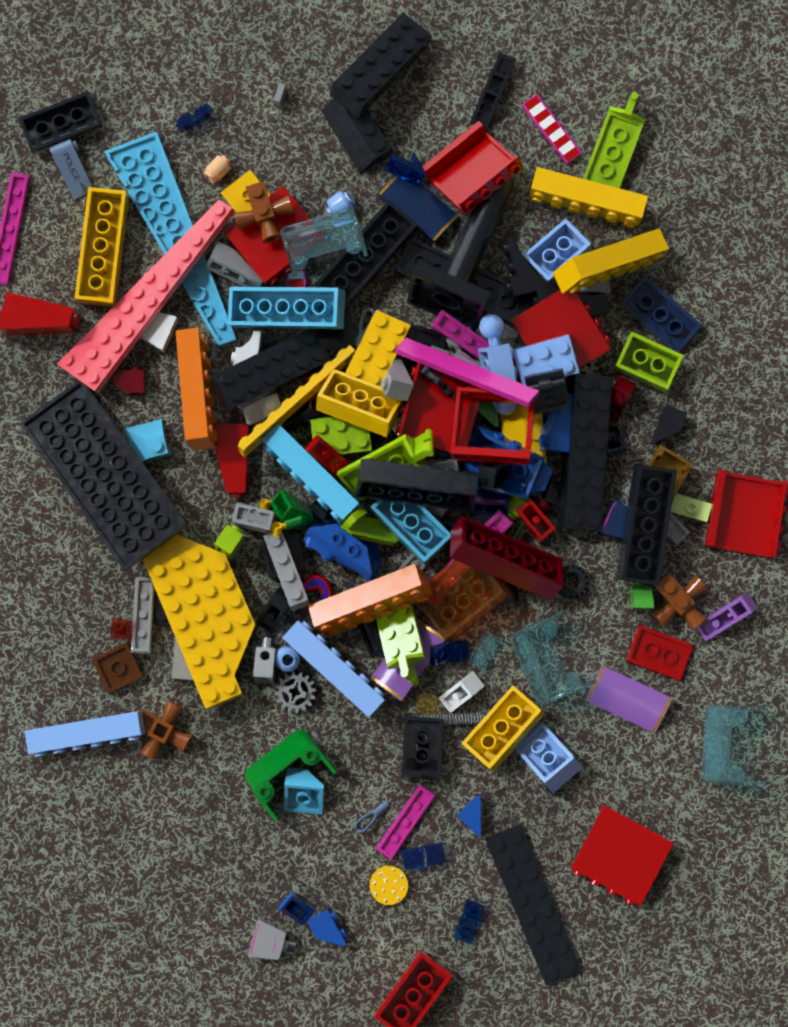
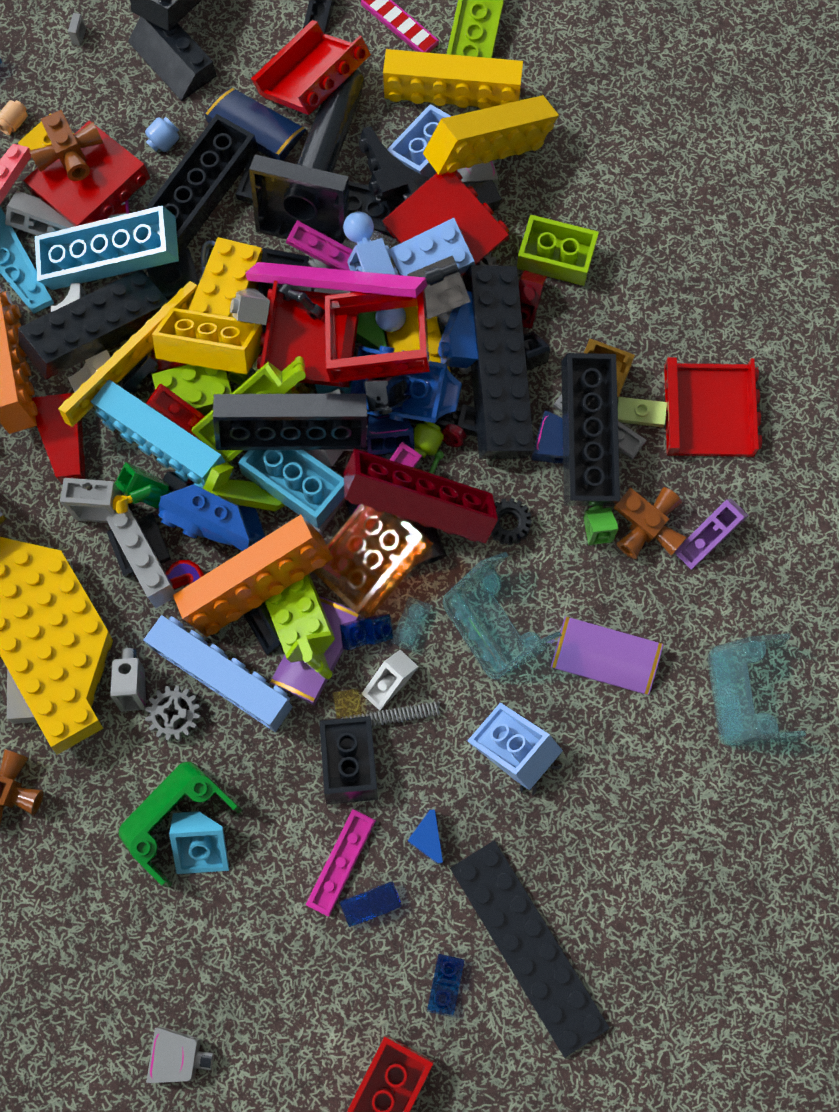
camera: 10 degrees left, 10 degrees down
(229, 541) = (66, 534): lime brick -> none
(274, 611) = (133, 615): black slope -> none
(285, 665) = (150, 665): light blue head -> none
(296, 908) = (207, 1004): blue slope -> none
(321, 237) = (141, 163): clear light blue windscreen -> none
(326, 929) = (252, 1026): blue slope -> none
(375, 812) = (300, 857): sand blue piece -> none
(388, 885) = (330, 952): yellow tile -> none
(407, 170) = (233, 83): clear blue slope -> none
(503, 728) = (451, 717): yellow slope -> none
(535, 521) = (450, 452): red slope -> none
(621, 856) = (635, 861): red panel -> none
(659, 652) = (636, 592): red tile -> none
(660, 314) = (562, 195): dark blue slope -> none
(669, 424) = (597, 317): black slope -> none

